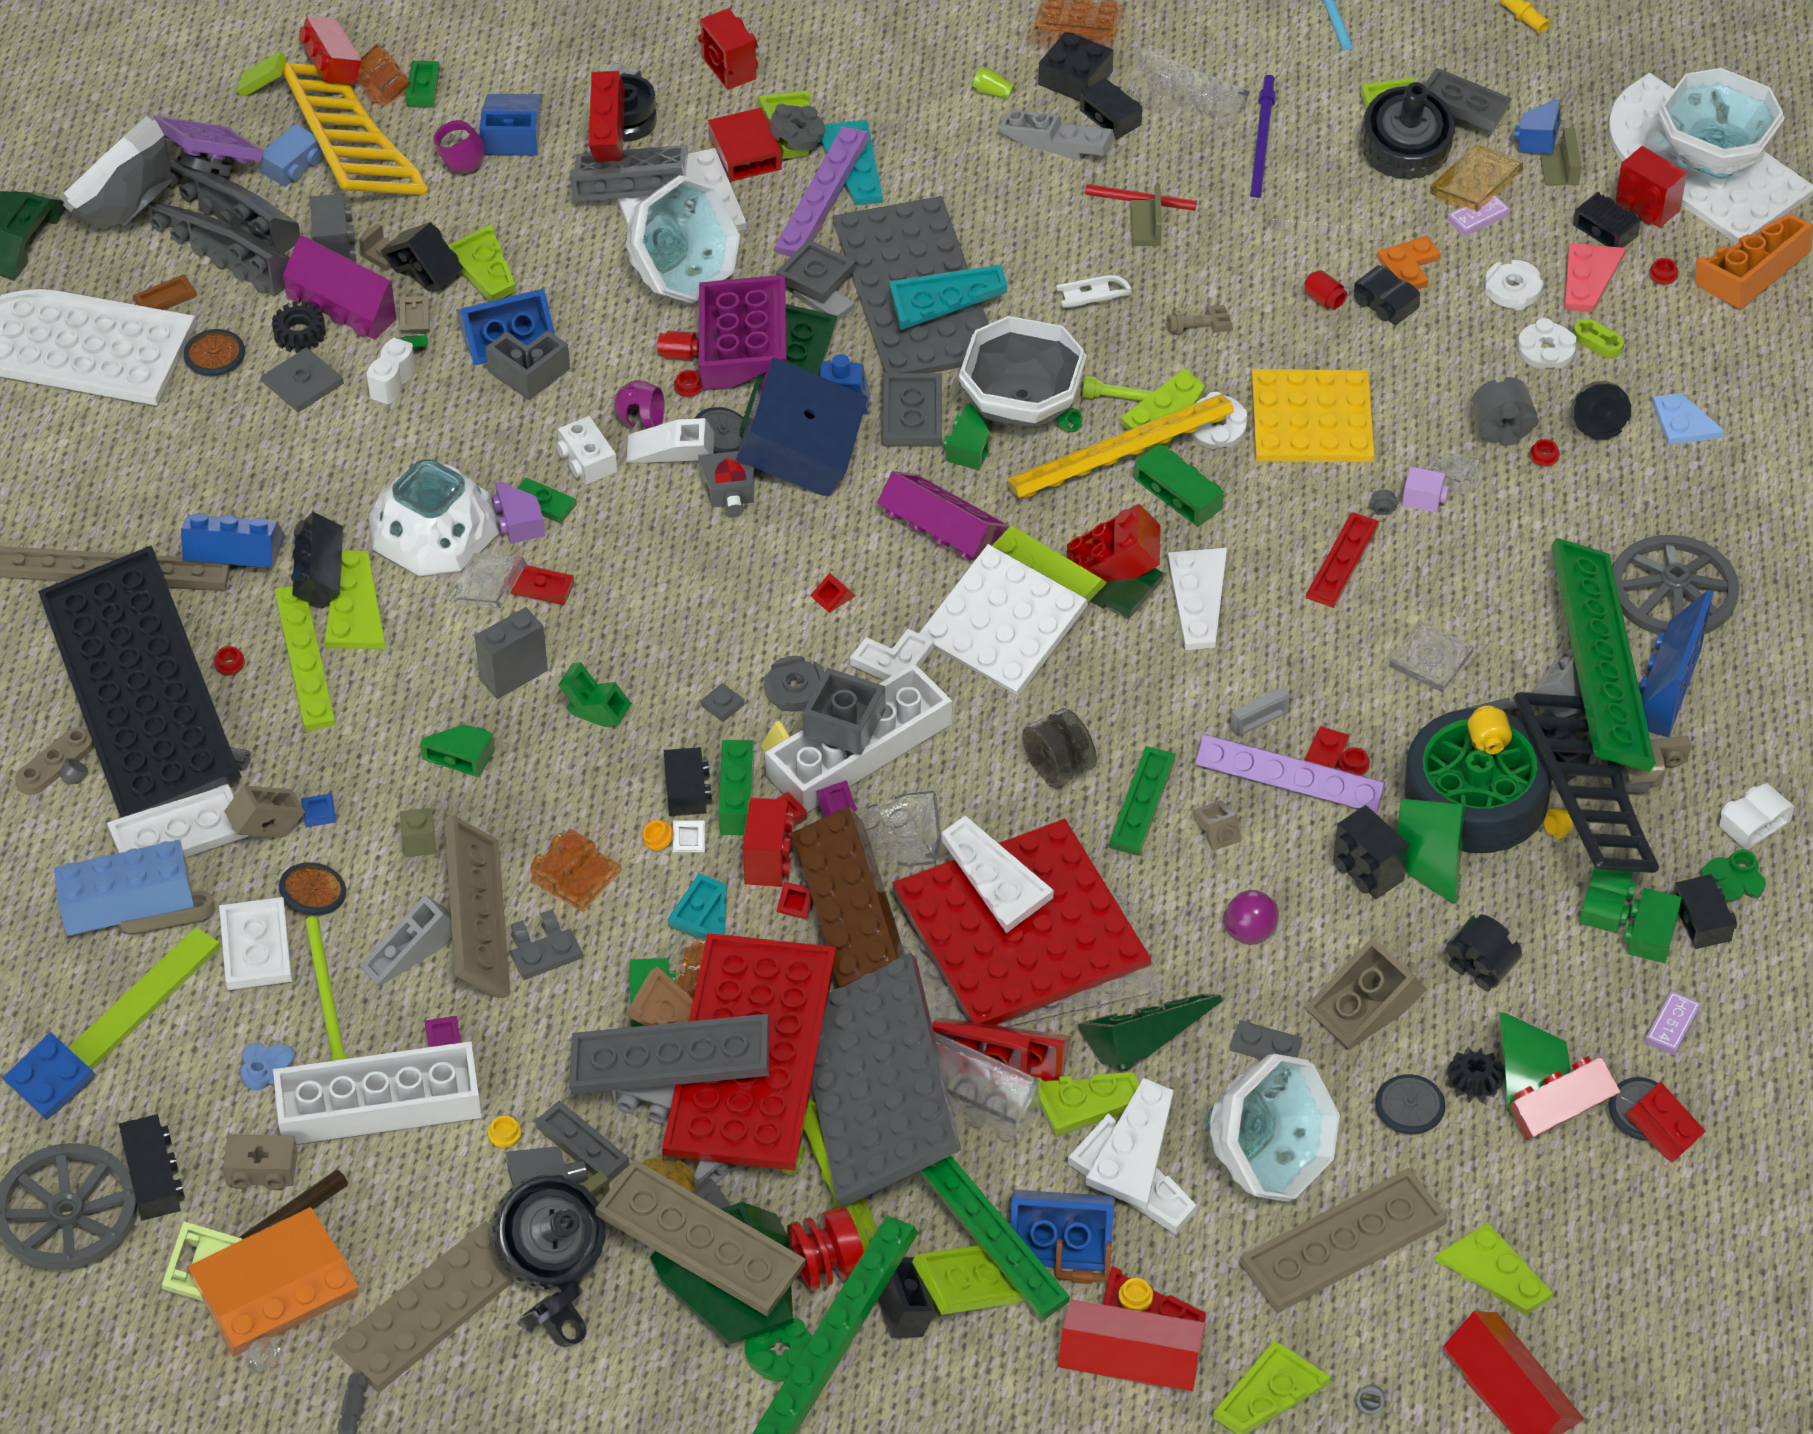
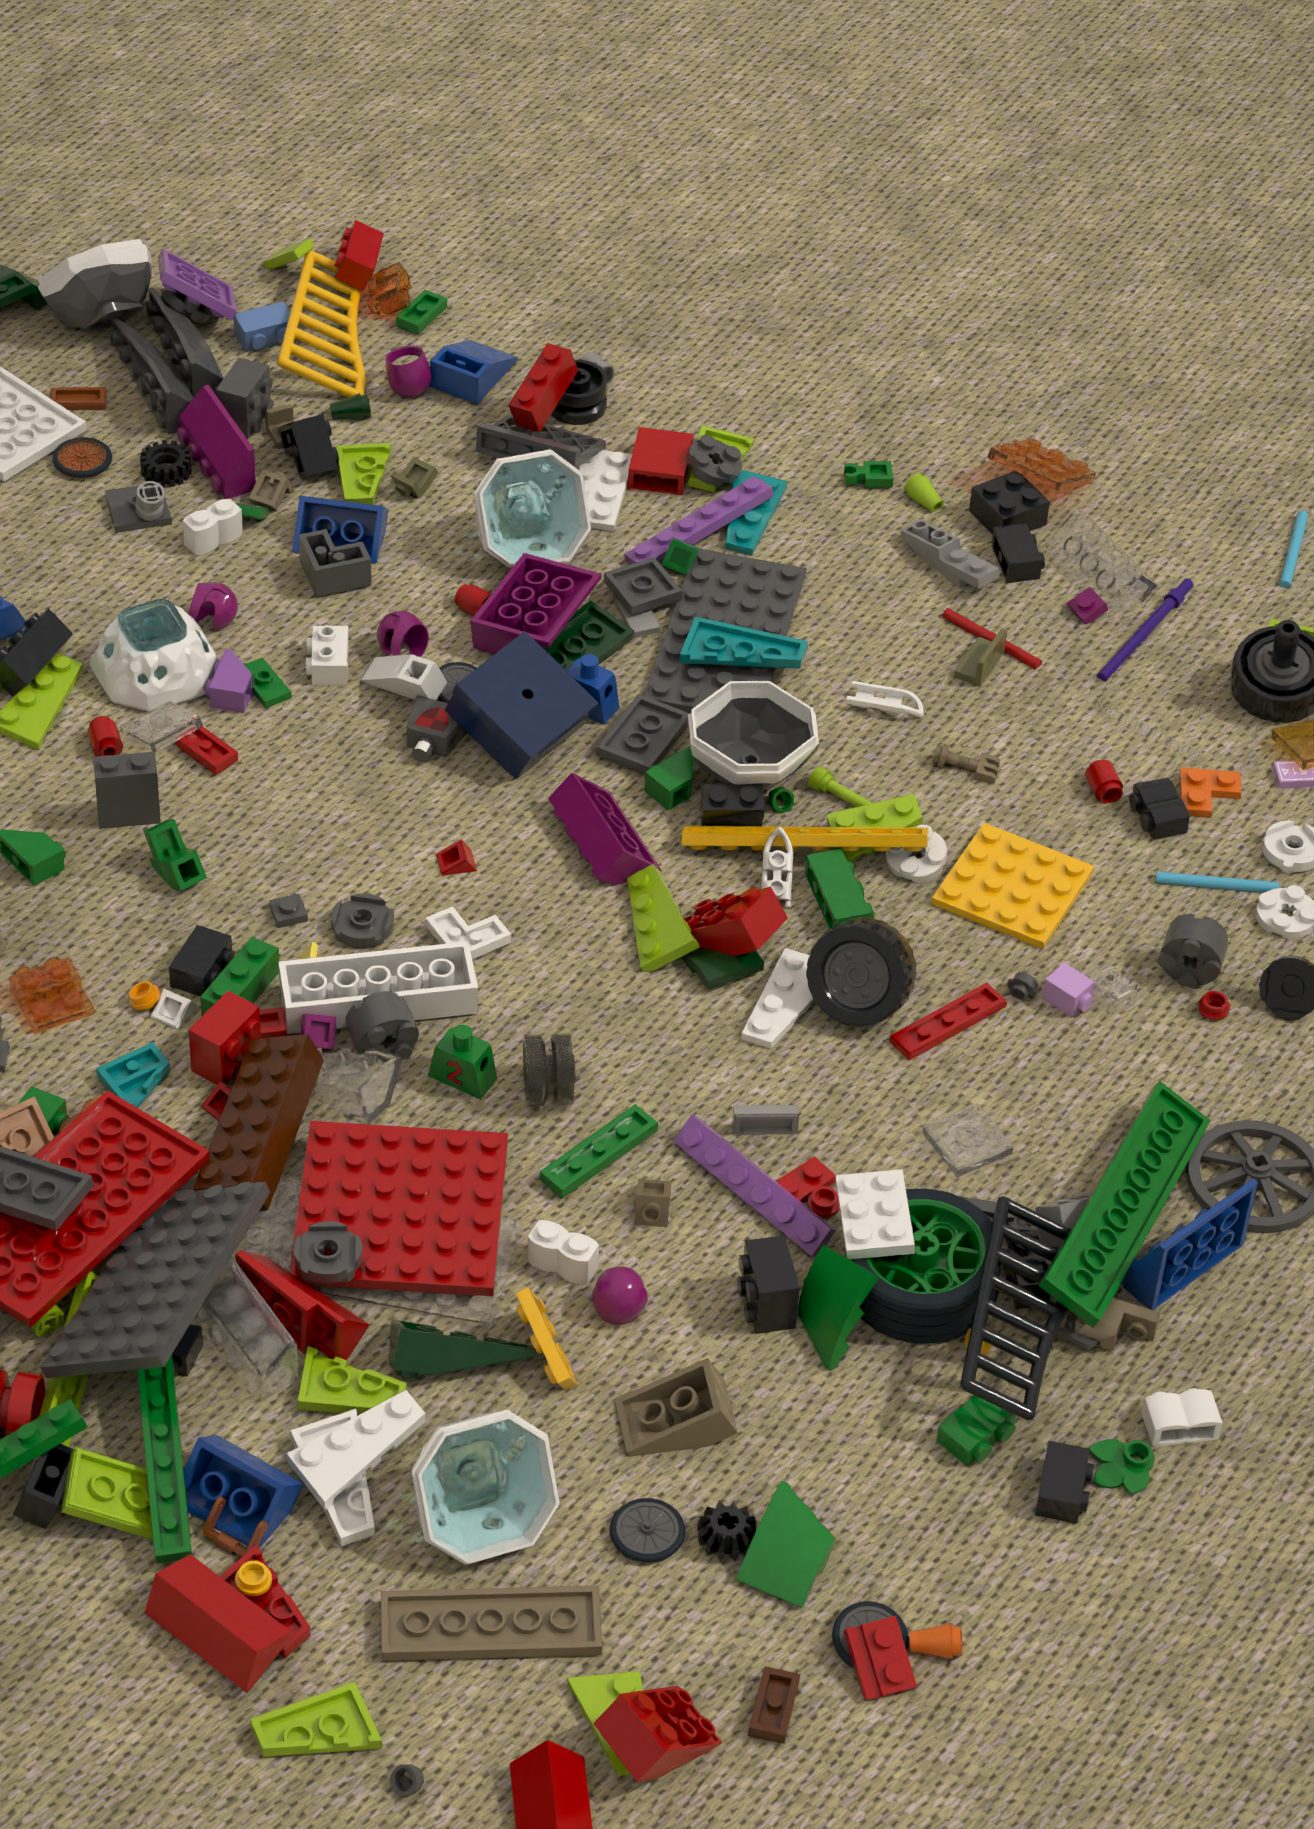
camera: 25 degrees right, 5 degrees down
(319, 369) = (149, 500): none -> light grey wheel
(429, 203) = (353, 407): none -> dark green cone
(442, 612) = (104, 737): none -> red brick
(448, 438) = (214, 599): none -> magenta helmet
(537, 249) = (415, 478): none -> olive bracket
(688, 377) = (460, 636): red plate -> none
(728, 48) = (702, 376): red brick -> none
(828, 229) = (680, 556): none -> green plate
(844, 711) = (364, 952): dark grey brick -> none
(891, 771) = (382, 1024): none -> dark grey brick
(934, 82) = (873, 474): none -> green plate
(979, 772) = (464, 1062): none -> green torso
(999, 878) = (401, 1154): white wing -> none
(1001, 1006) = (332, 1268): none -> dark grey plate
(1003, 619) = (586, 942): white plate -> none
(1038, 443) = (732, 805): none -> black brick
(1114, 478) = (777, 862): none -> white piece
(1181, 901) = (564, 1252): none -> white brick
(1202, 134) = (1087, 606): none -> magenta plate
(1222, 982) = (533, 1311): none -> yellow wing
(1261, 547) = (861, 971): none -> black wheel
(1262, 1041) = (553, 1415): dark grey plate -> none
(1424, 753) = (875, 1214): none -> white plate
(1471, 343) = (1215, 882): none -> medium azure bar
(1483, 951) = (812, 1420): black brick -> none
(1489, 729) = (949, 1217): yellow head -> none
(1543, 1264) = (656, 1731): none -> red slope
(1563, 1096) = (790, 1587): brick -> none
(1609, 1198) = (774, 1705): none -> reddish brown plate
(1653, 926) = (1003, 1472): green brick -> none
(1673, 1023) = (960, 1572): lavender tile -> none
(1698, 1086) = (938, 1641): none -> orange cone

